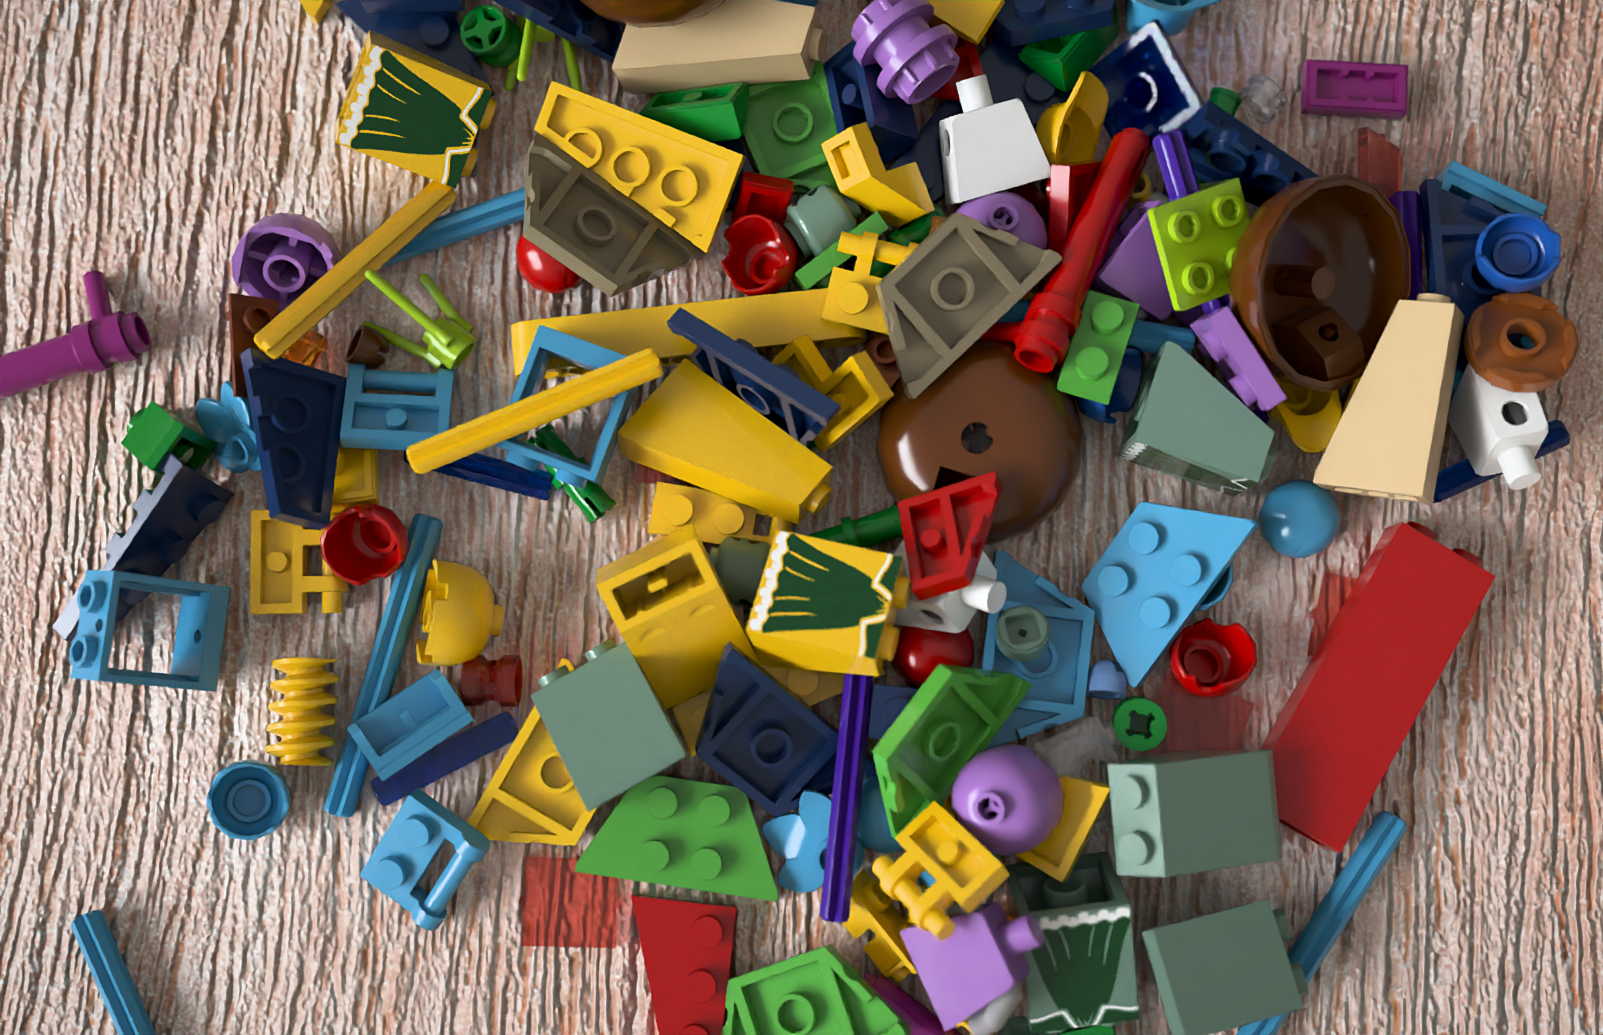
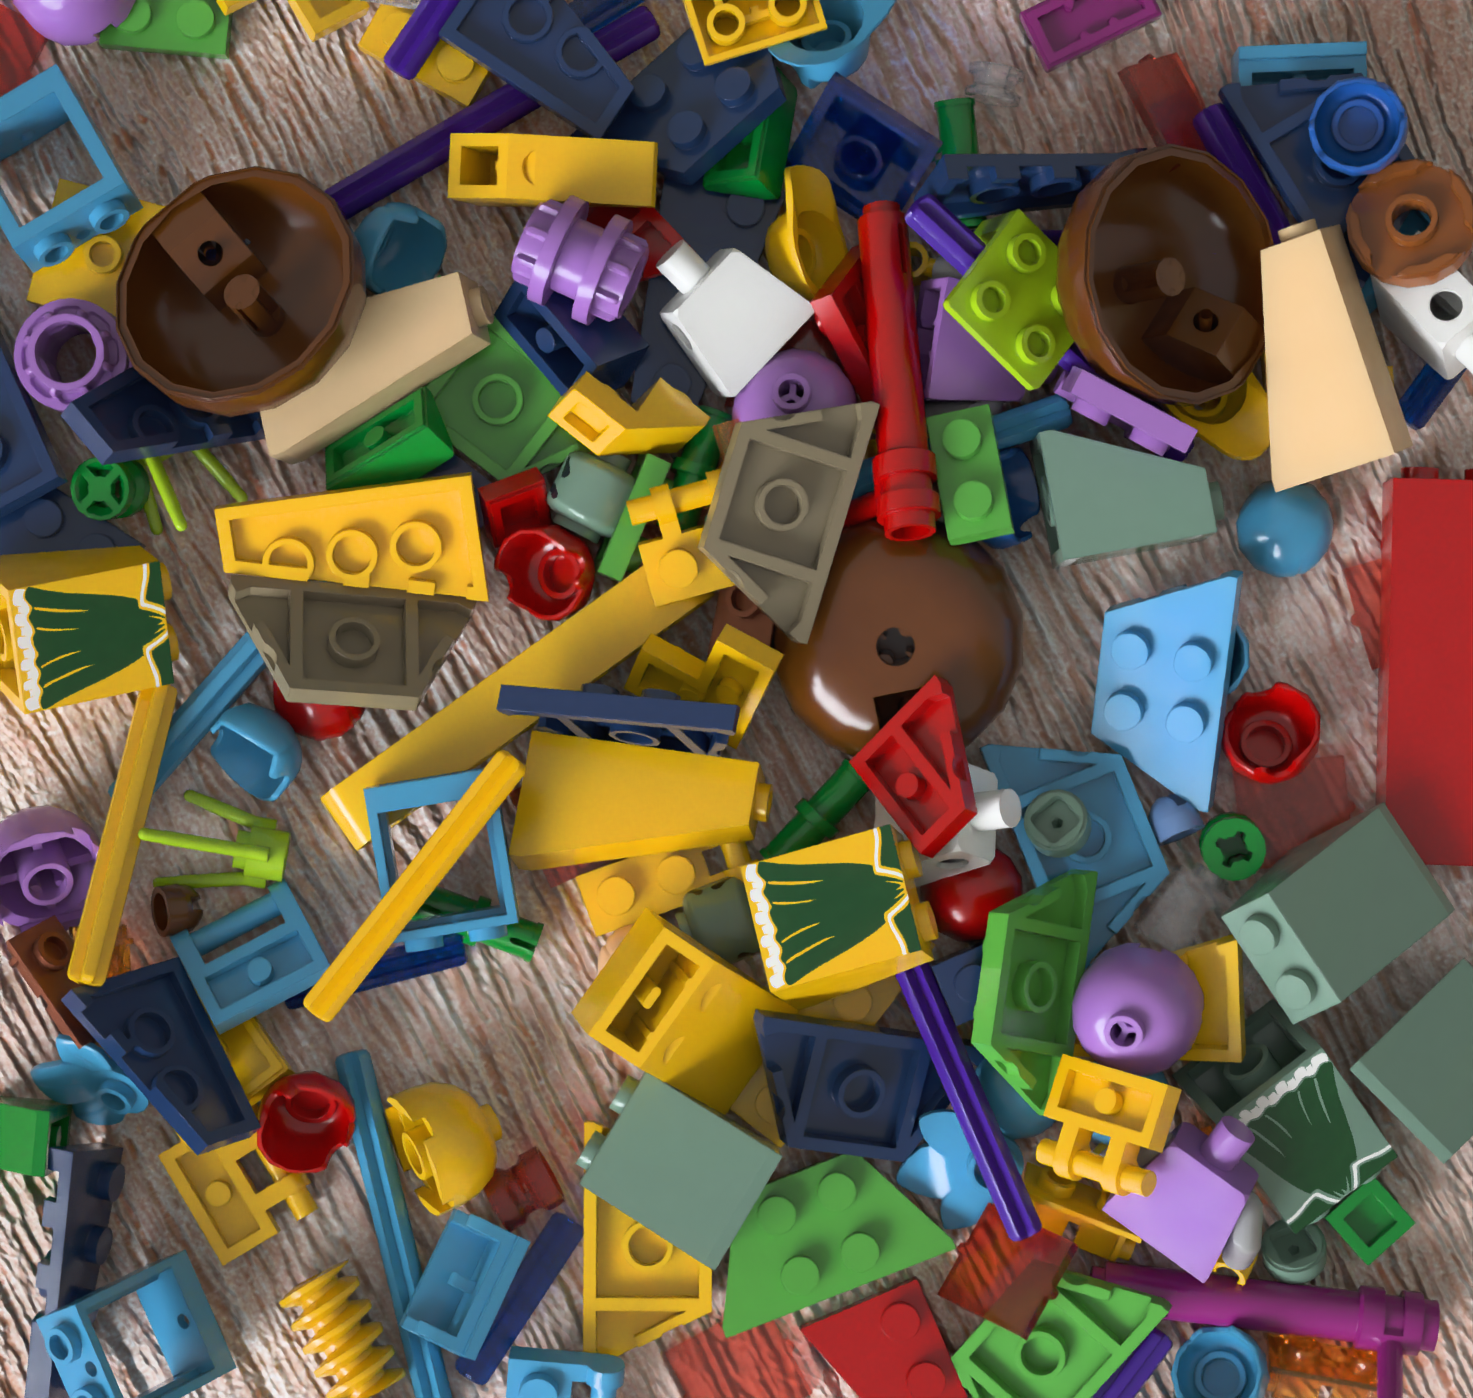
camera: 30 degrees left, 5 degrees up
(487, 268) = (257, 750): none -> dark azure hair
(801, 944) = (1007, 1278): none -> clear red piece

